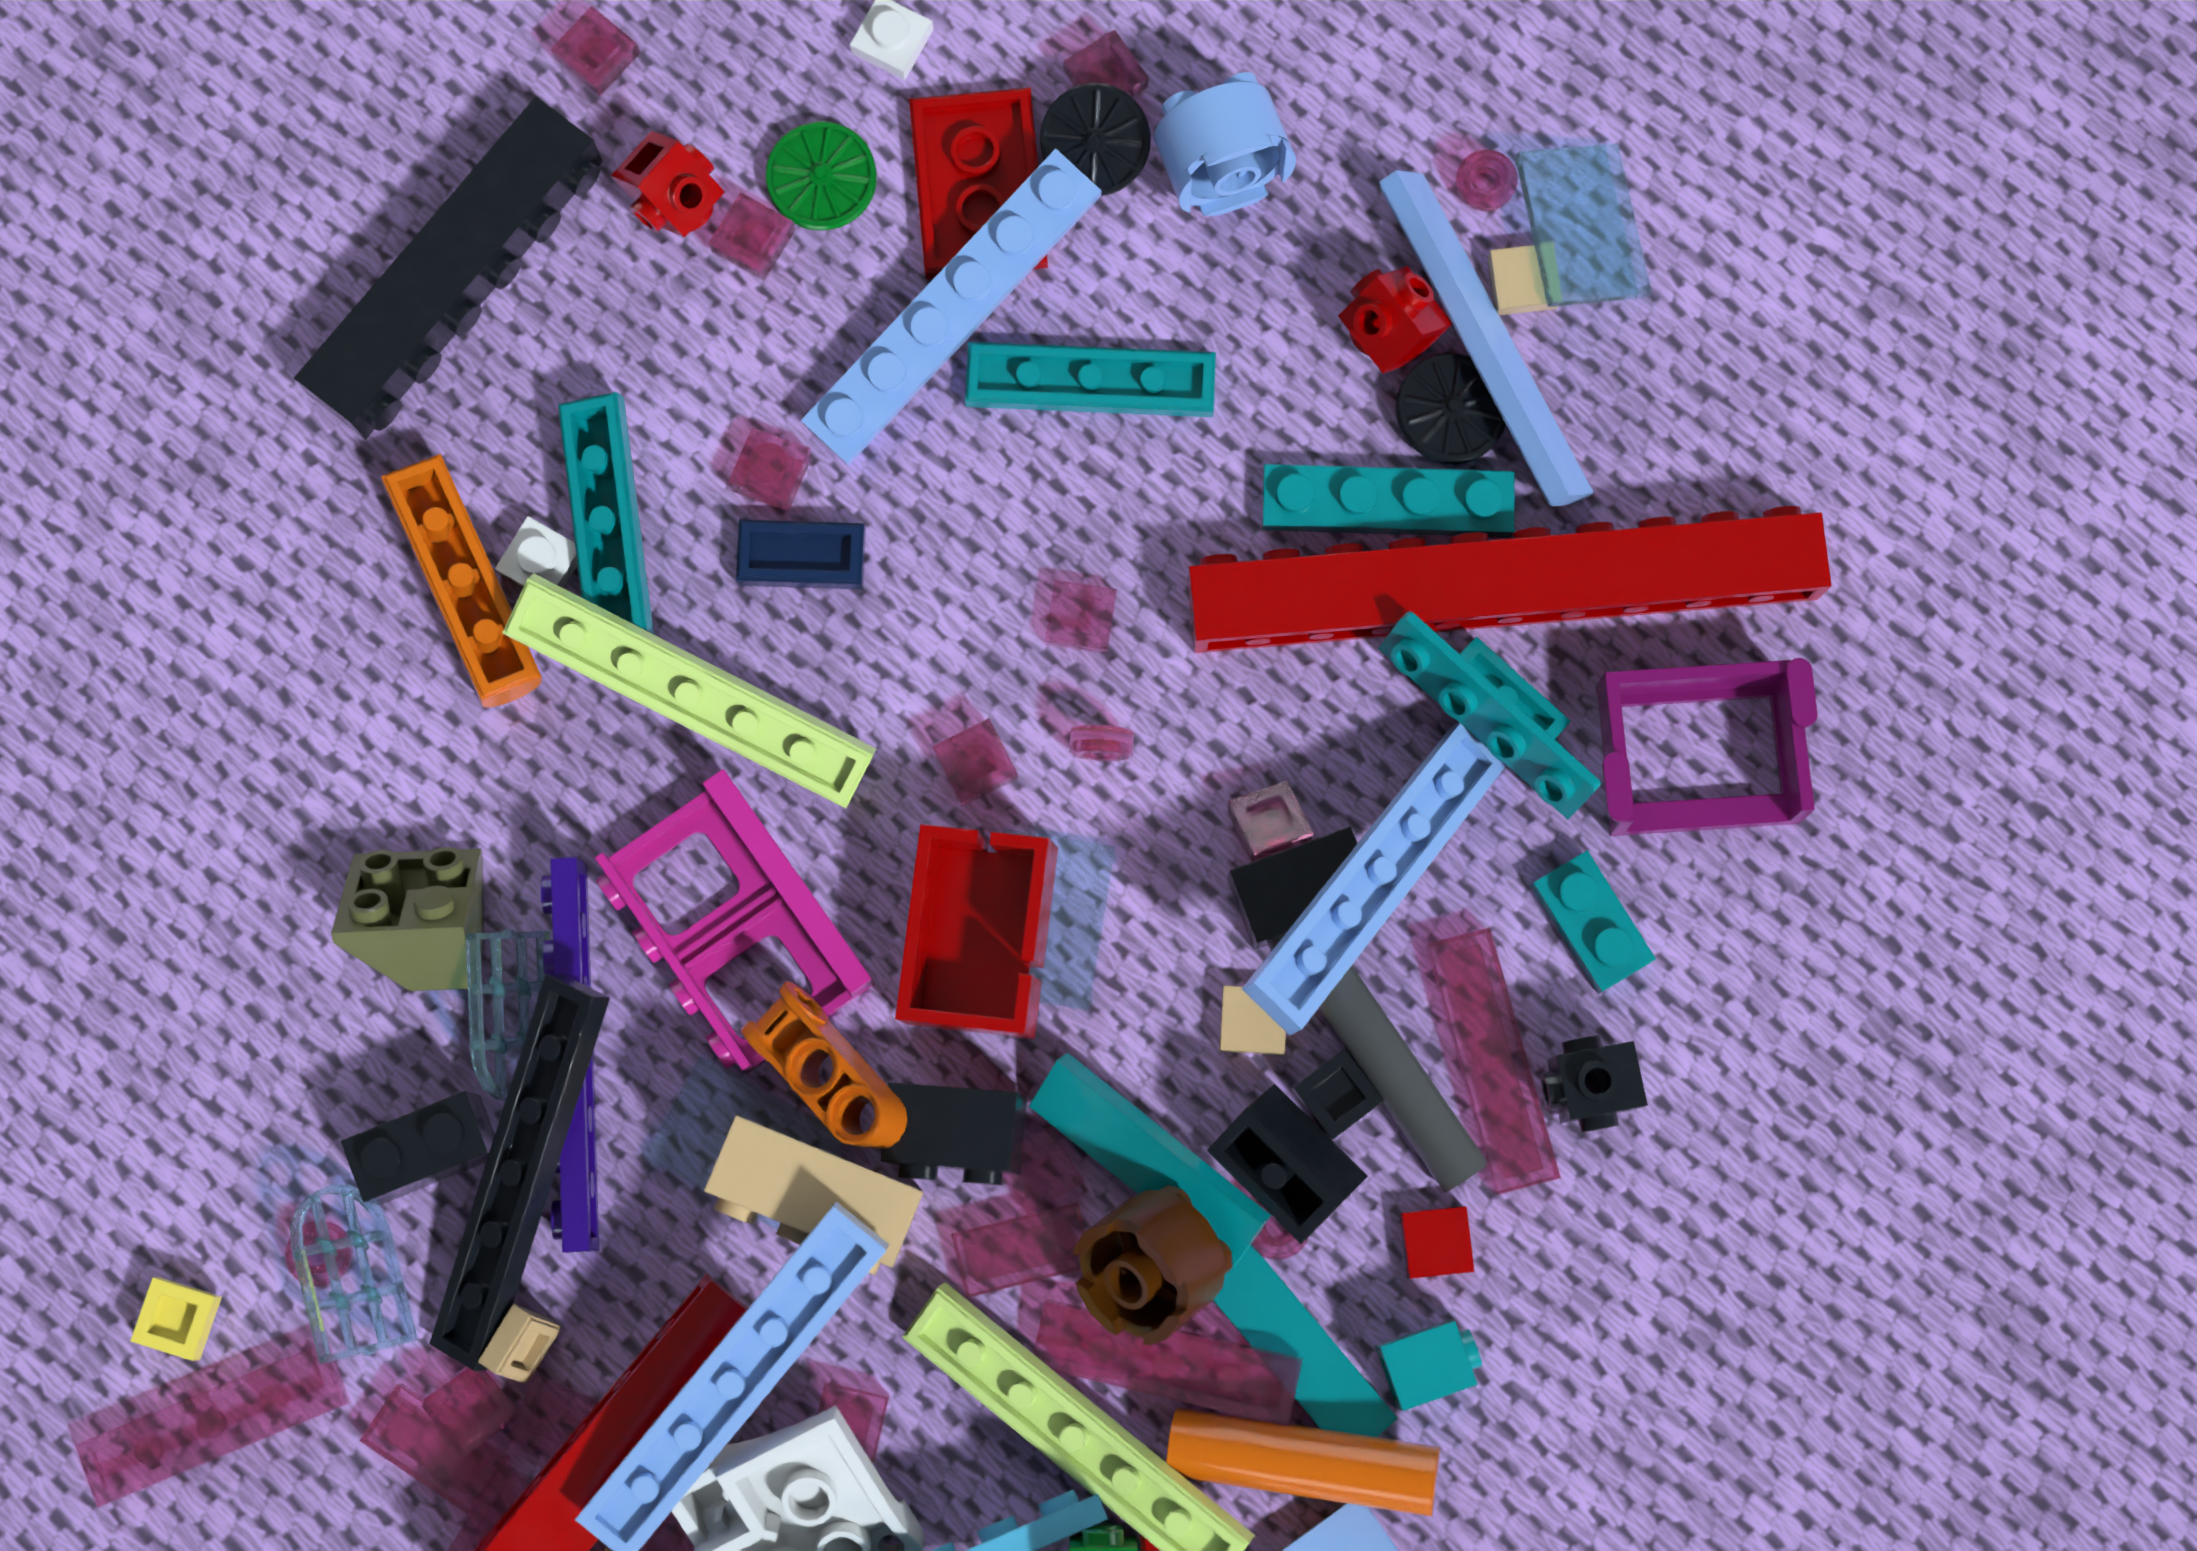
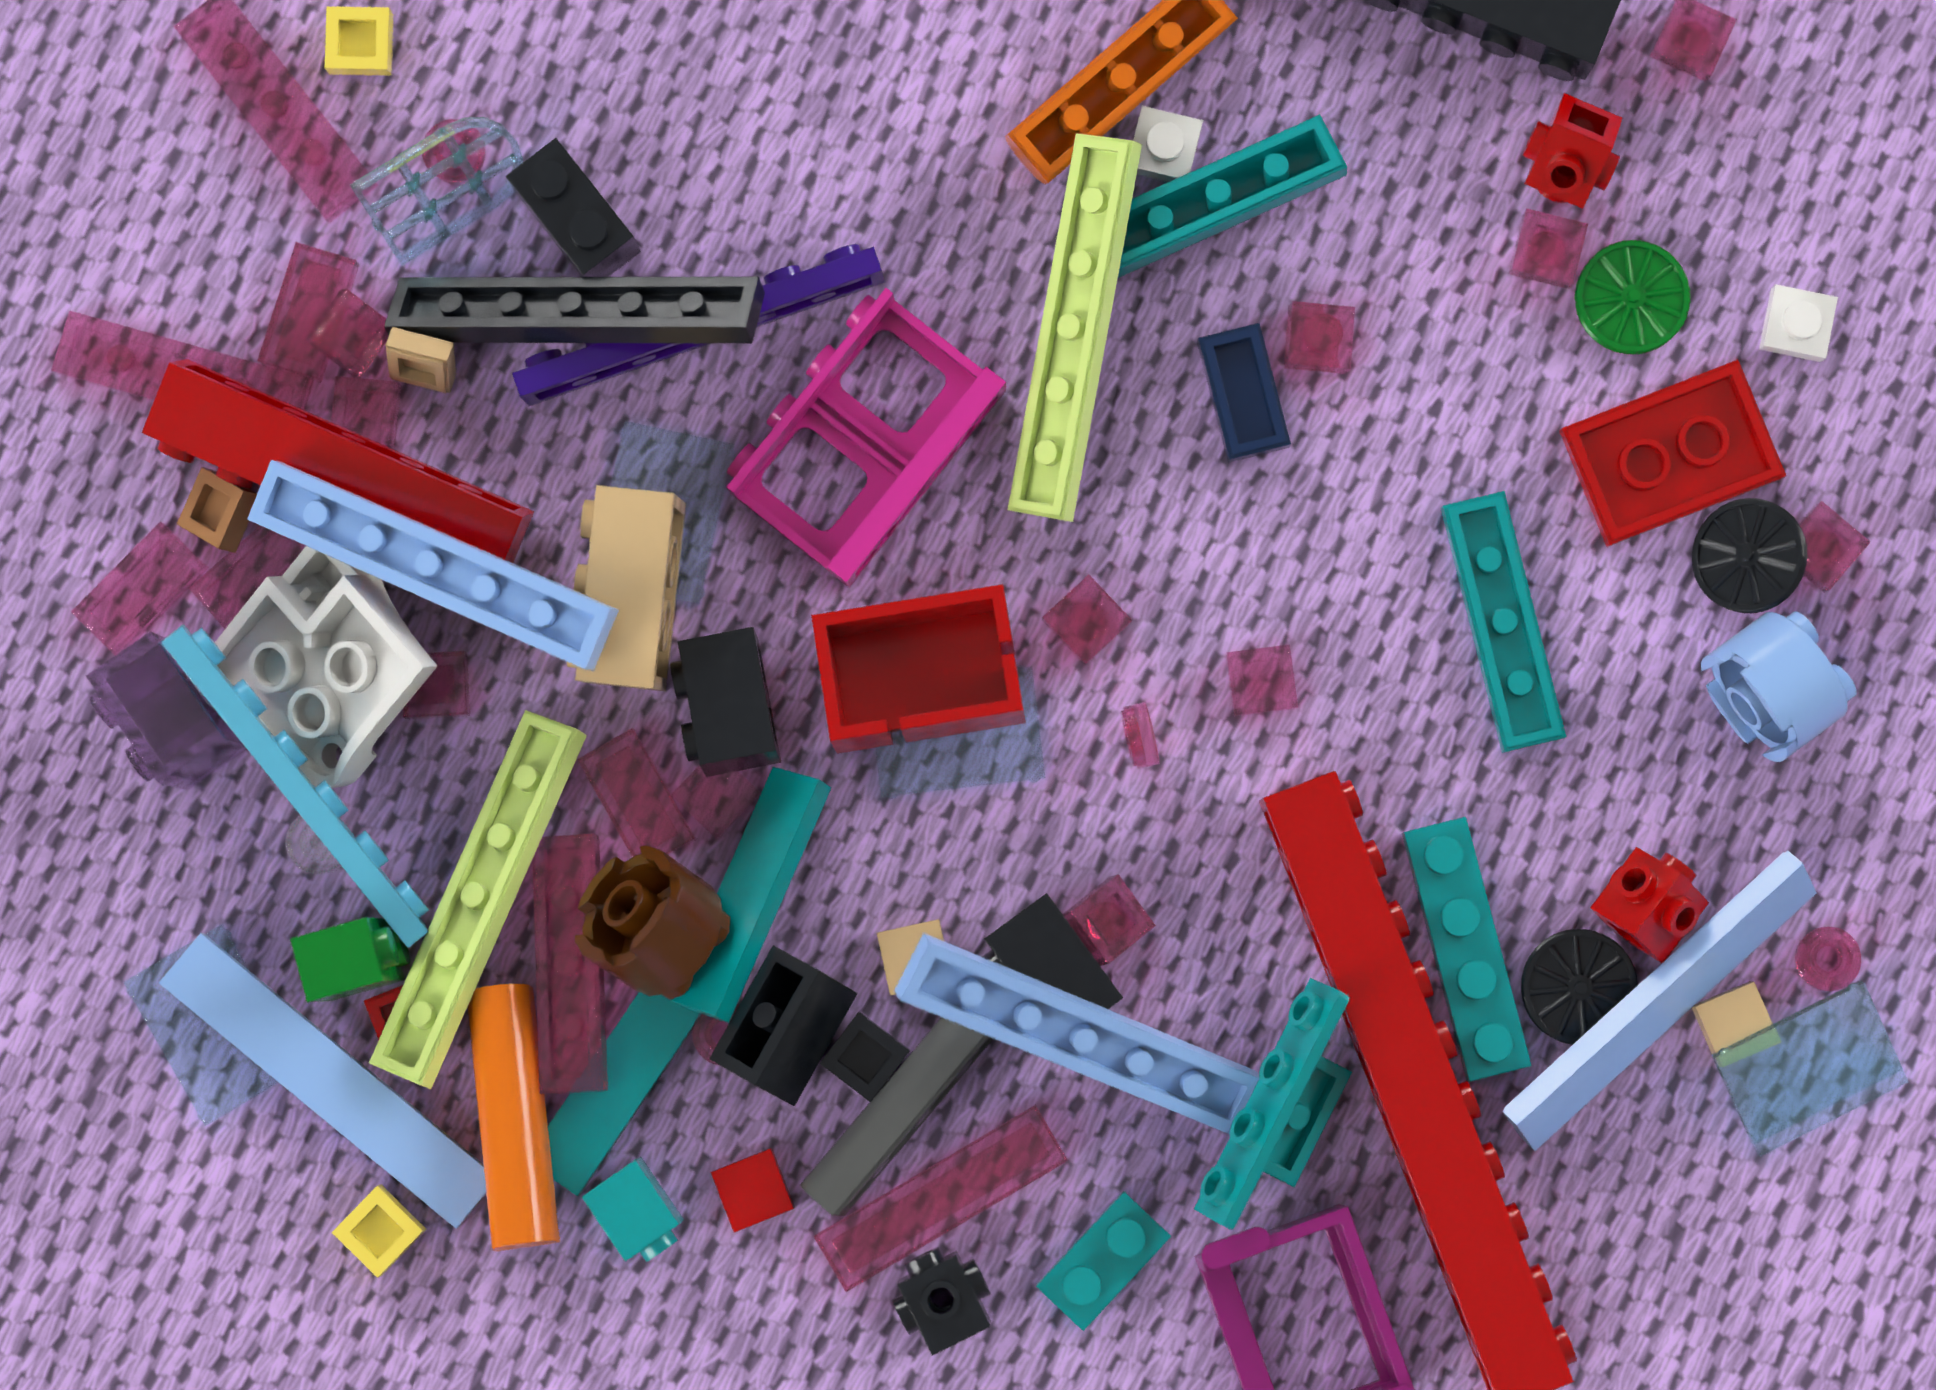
camera: 80 degrees right, 5 degrees up
(413, 914) = (787, 138): olive slope -> none
(498, 990) = (736, 237): clear light blue window -> none
(796, 1040) = (765, 528): orange piece -> none
(951, 307) = (1534, 465): light blue plate -> none

